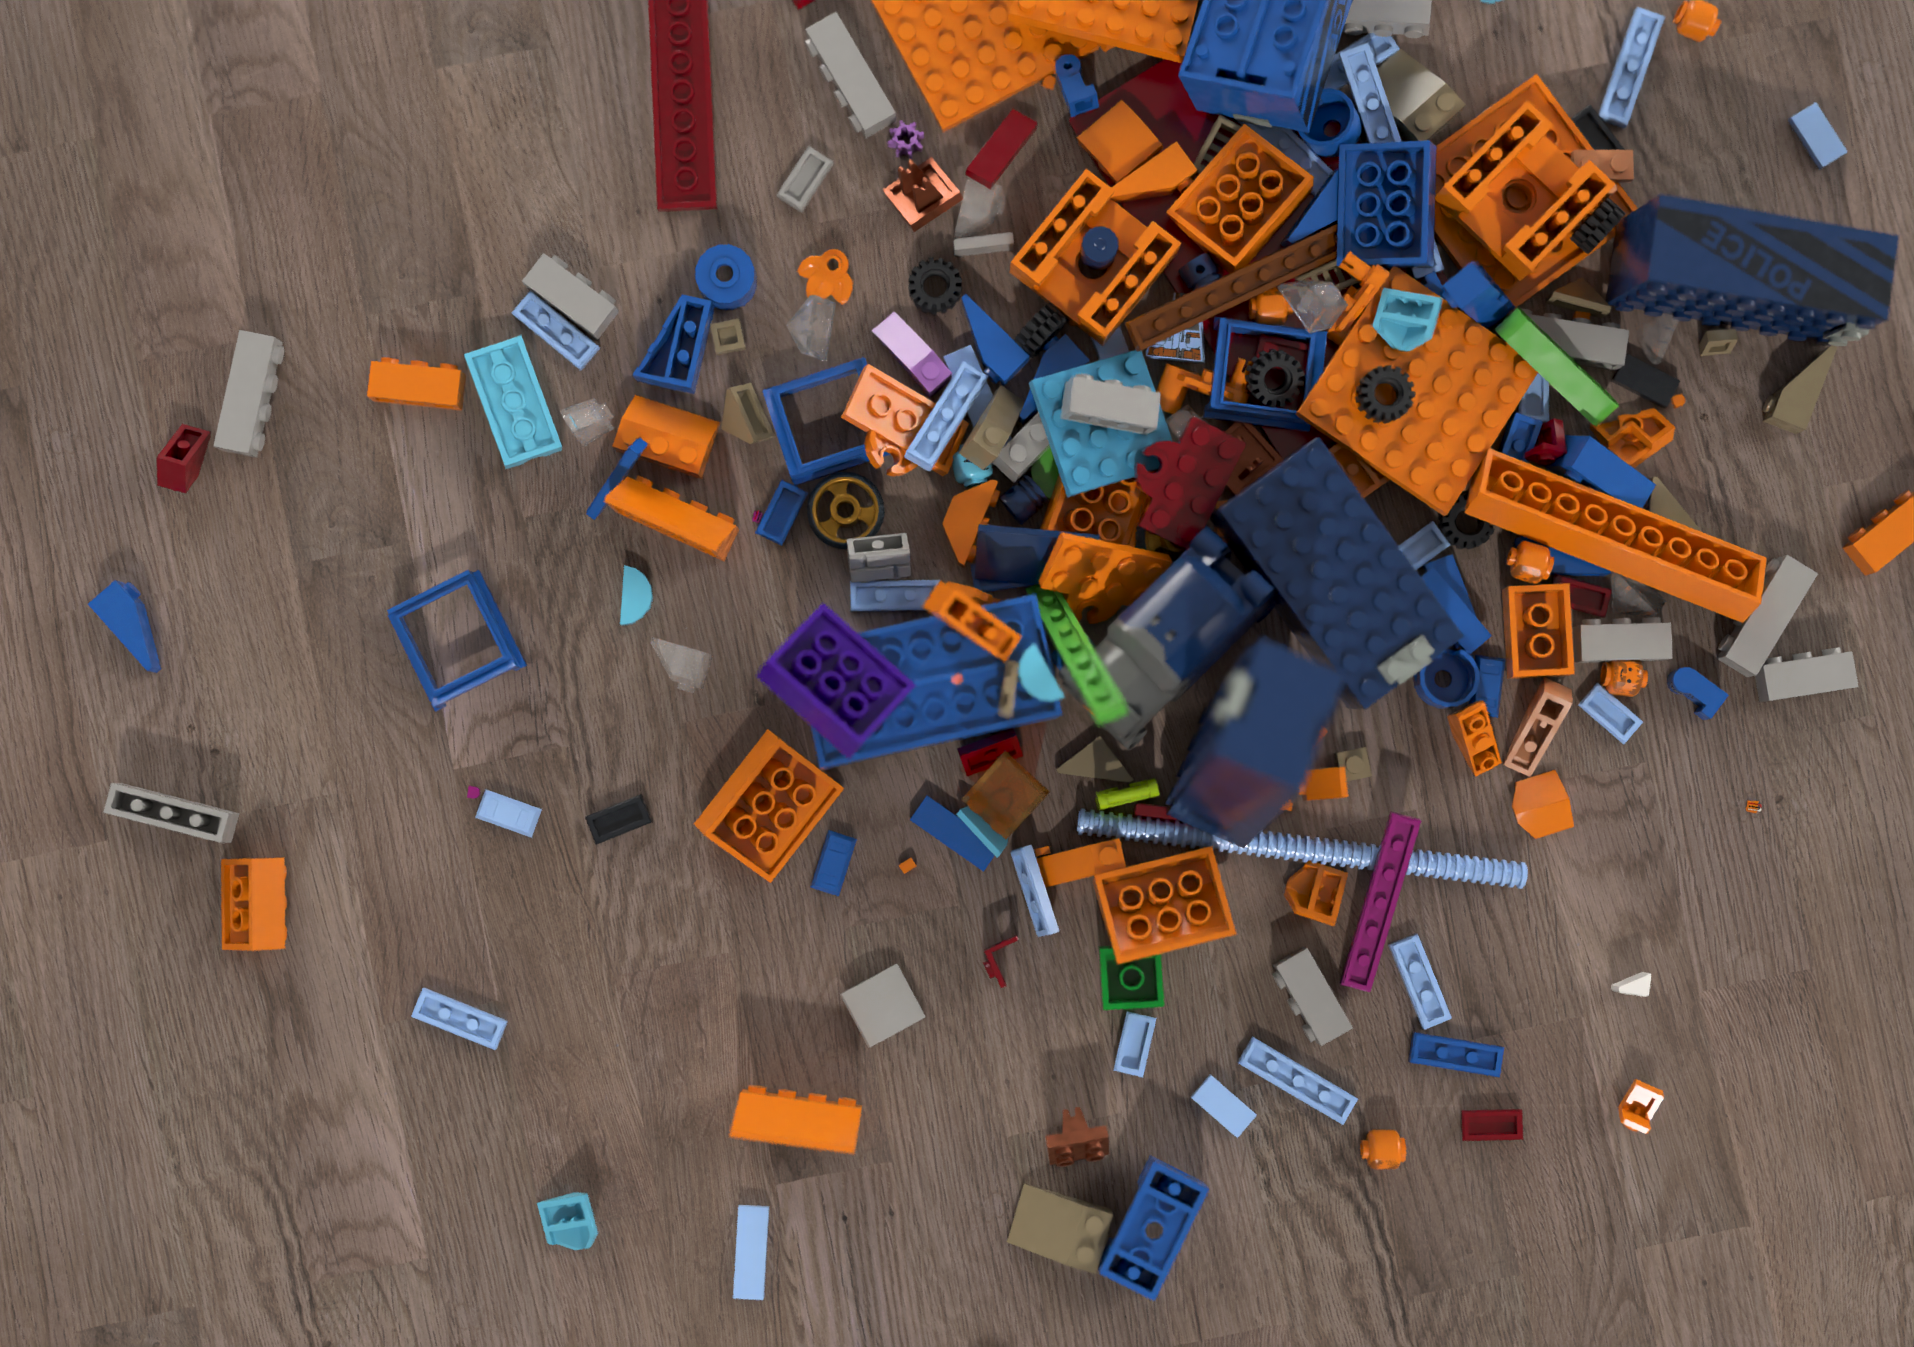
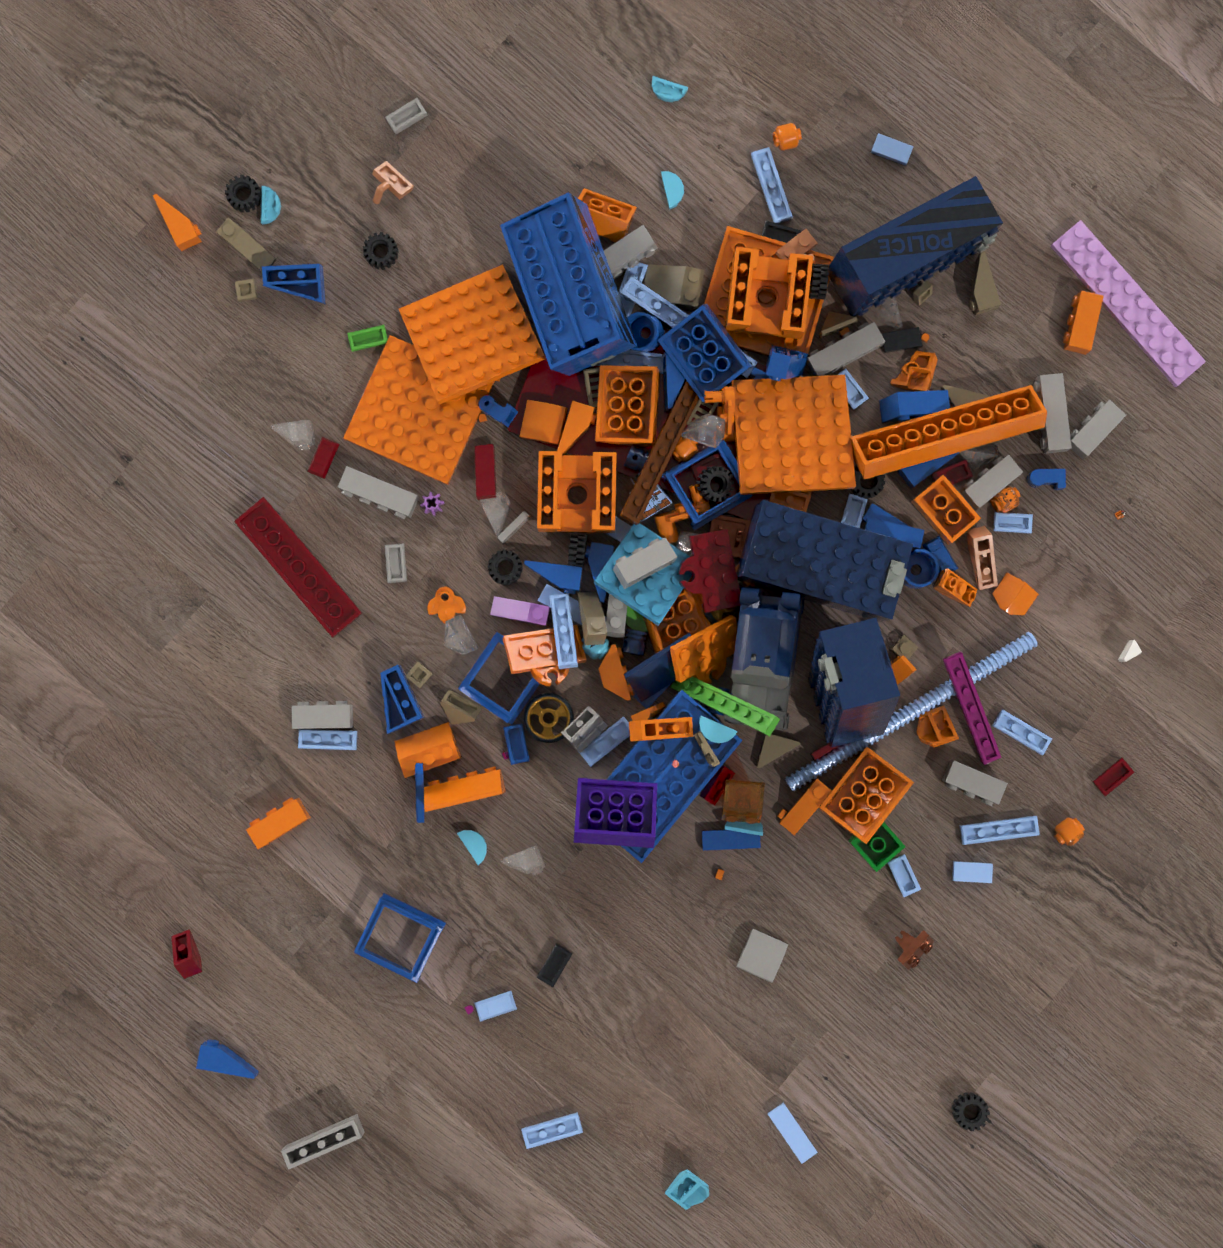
camera: 40 degrees left, 0 degrees up
(249, 393) = (194, 894): light grey brick -> none
(253, 904) = (401, 1155): orange slope -> none
(513, 402) = (335, 793): medium azure gear -> none
(588, 420) = (381, 773): clear slope -> none
(738, 289) = (406, 645): blue piece -> none
(768, 806) = (625, 899): orange slope -> none
(797, 1120) = (765, 1049): orange slope -> none
(833, 863) = (681, 902): blue tile -> none
(922, 193) = (462, 525): copper plate -> none
(991, 965) = (801, 892): dark red bracket -> none
(1034, 891) = (794, 837): light blue tile -> none
(1060, 1227) = (939, 998): dark tan slope -> none
(1099, 248) = (575, 485): dark blue piece -> none
(1136, 792) = (807, 745): lime plate -> none
(1162, 1197) = (981, 942): blue plate -> none
(1397, 381) = (784, 440): black tyre -> none
(1406, 318) = (760, 403): medium azure slope -> none
(1456, 1054) = (1068, 755): blue tile -> none
(1520, 436) = (861, 418): blue plate -> none
(1530, 562) = (915, 478): orange head -> none
(1549, 443) = (877, 409): dark red bracket -> none
(1557, 367) = (852, 368): bright green beam -> none
(1639, 1106) = (1179, 710): orange bracket -> none

